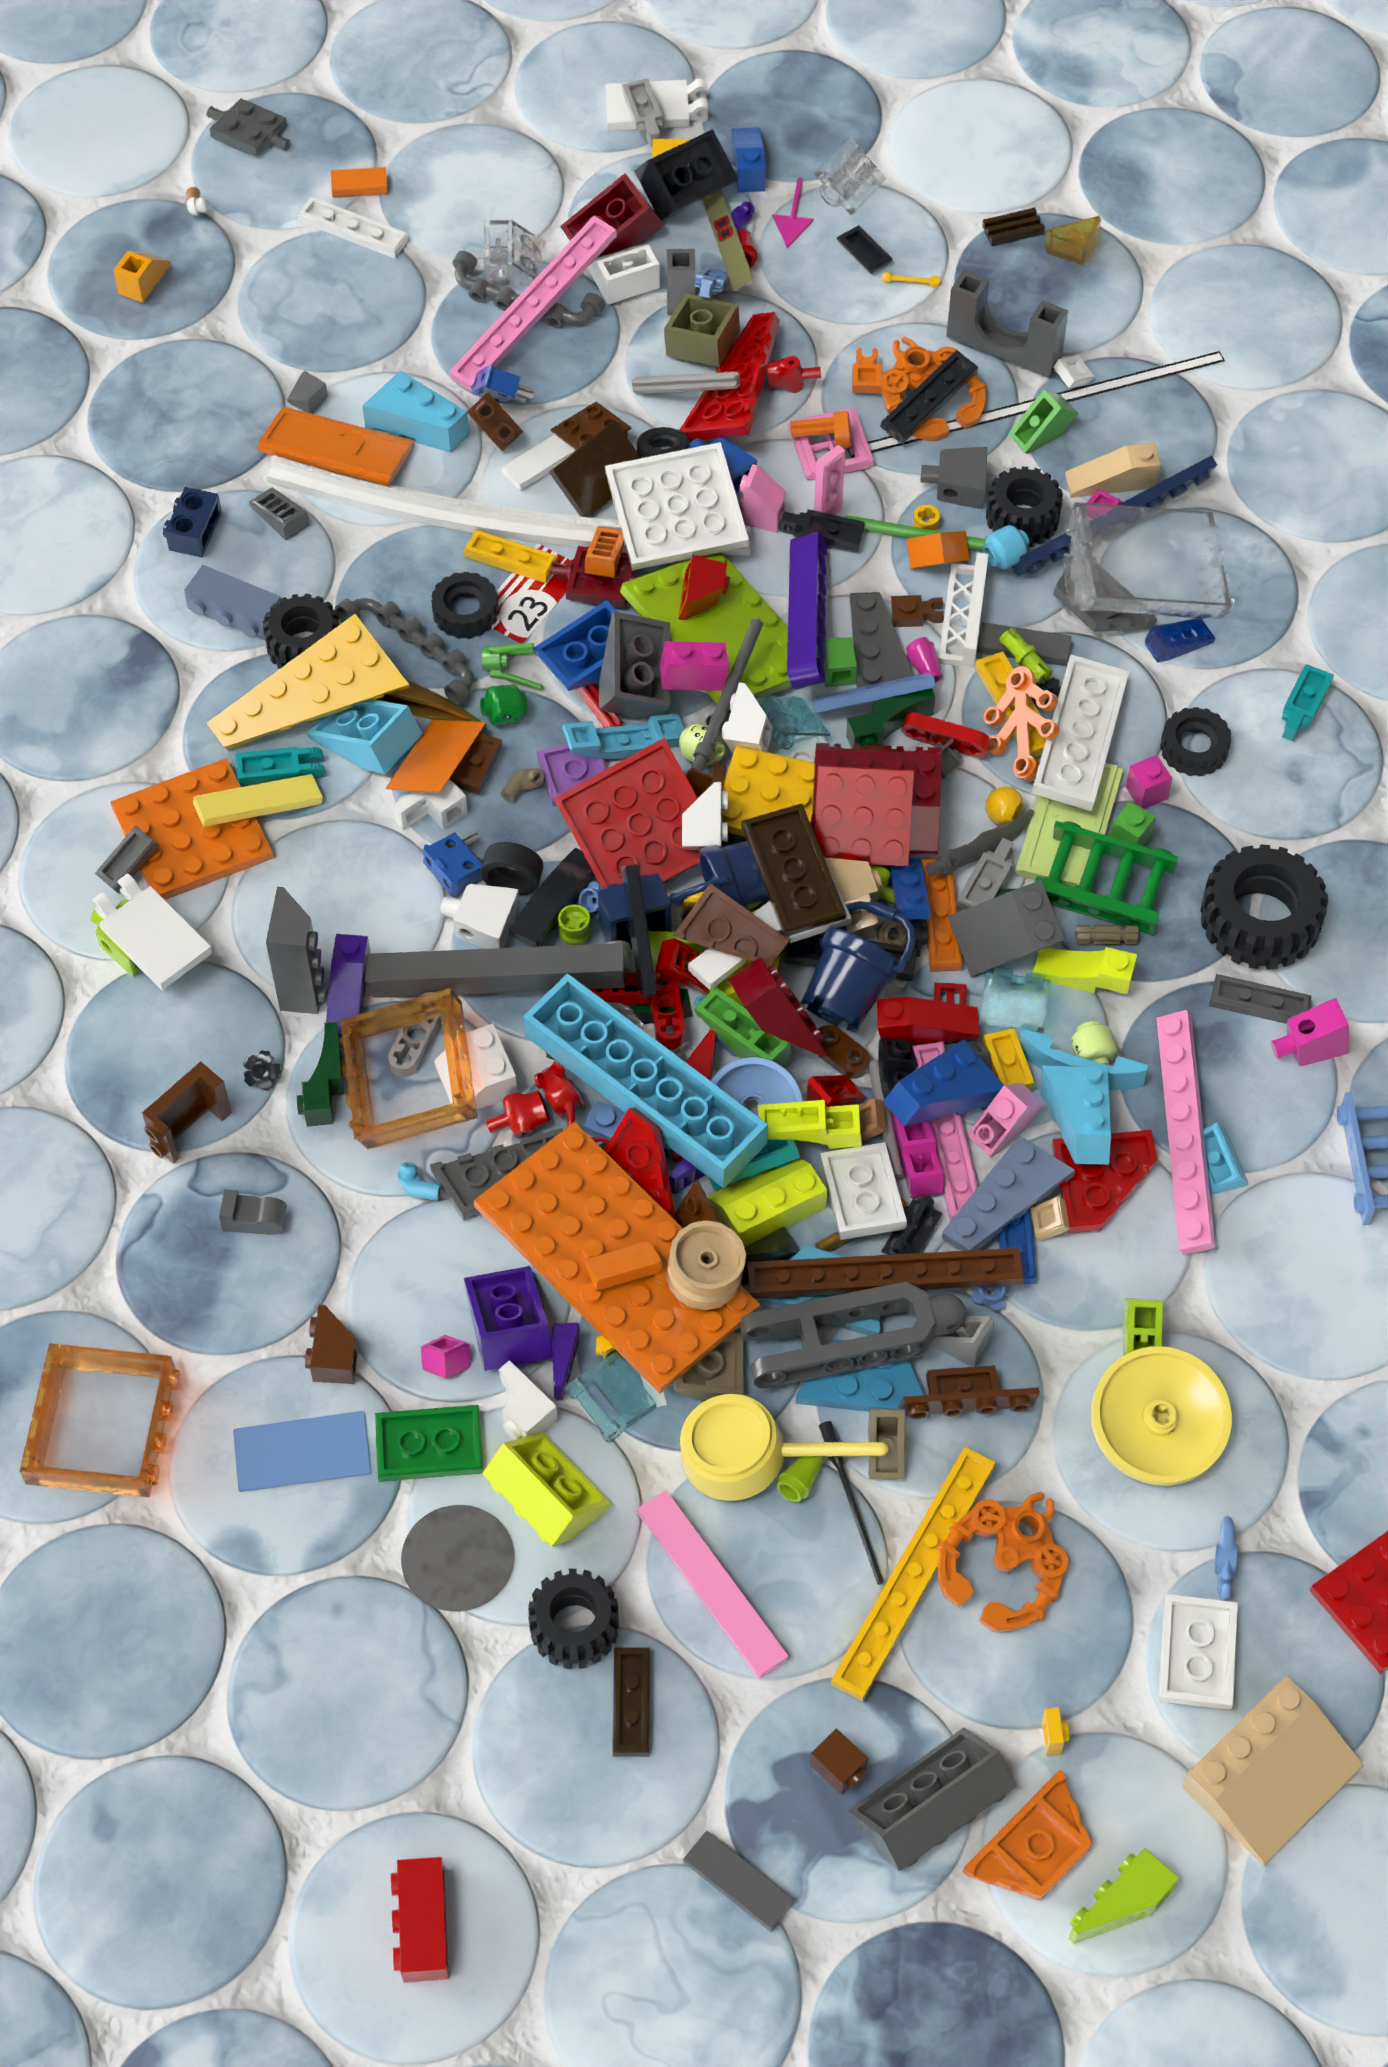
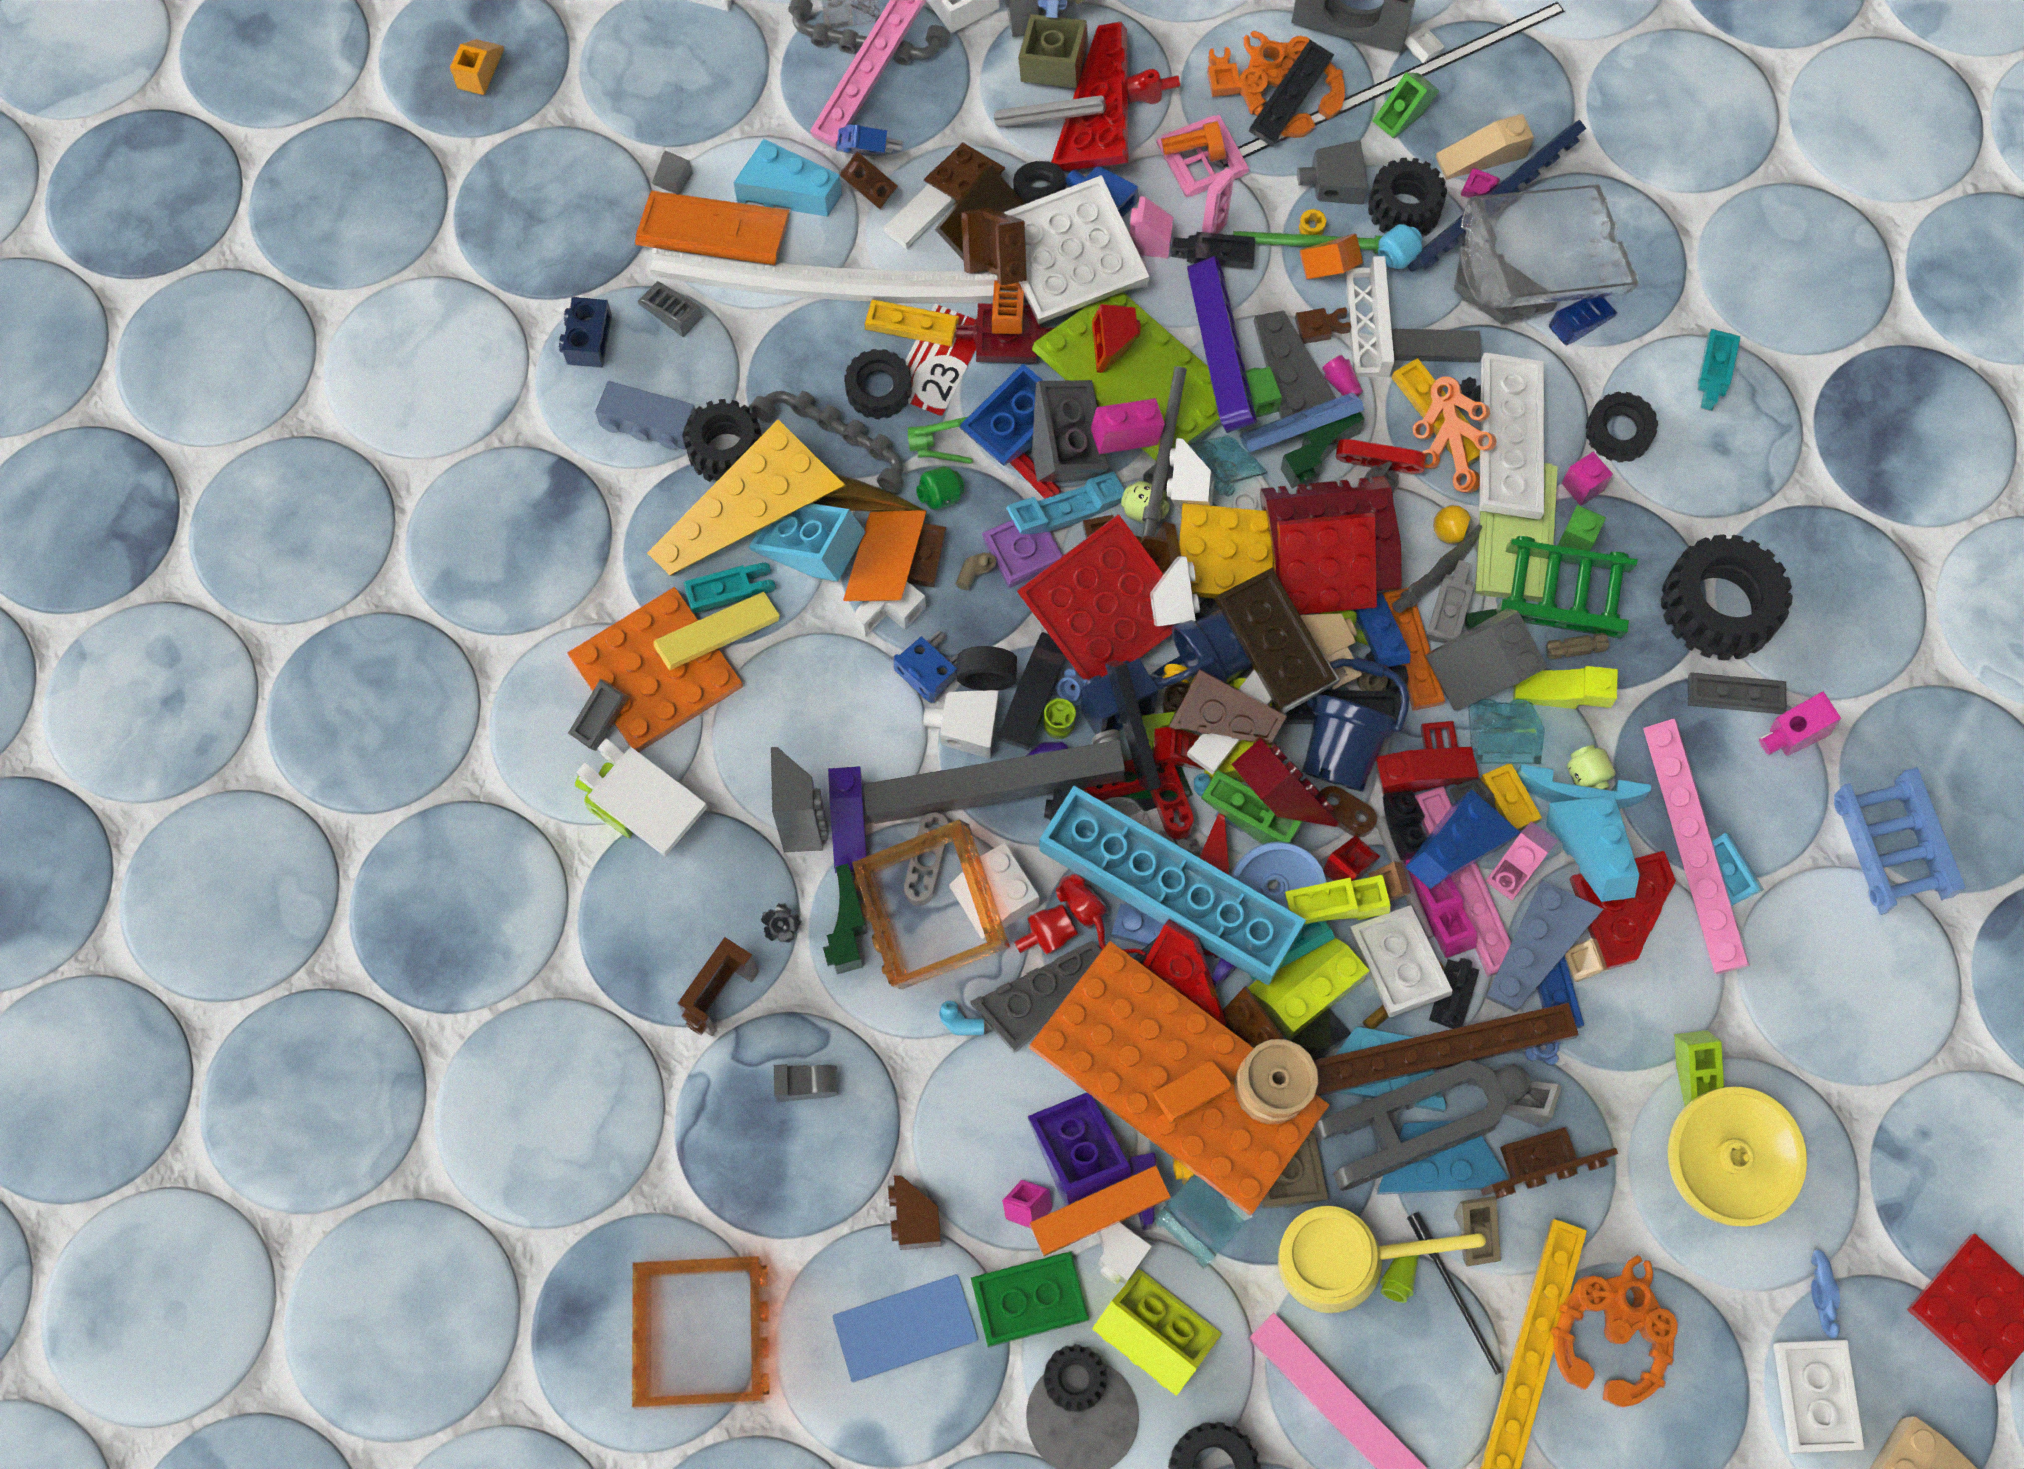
camera: 10 degrees left, 10 degrees up
(462, 1536) = (1097, 1378): none -> black tyre
(511, 1364) = (1099, 1211): none -> orange tile
(601, 490) = (994, 244): none -> reddish brown panel
(1026, 655) = (1441, 358): lime pin -> none

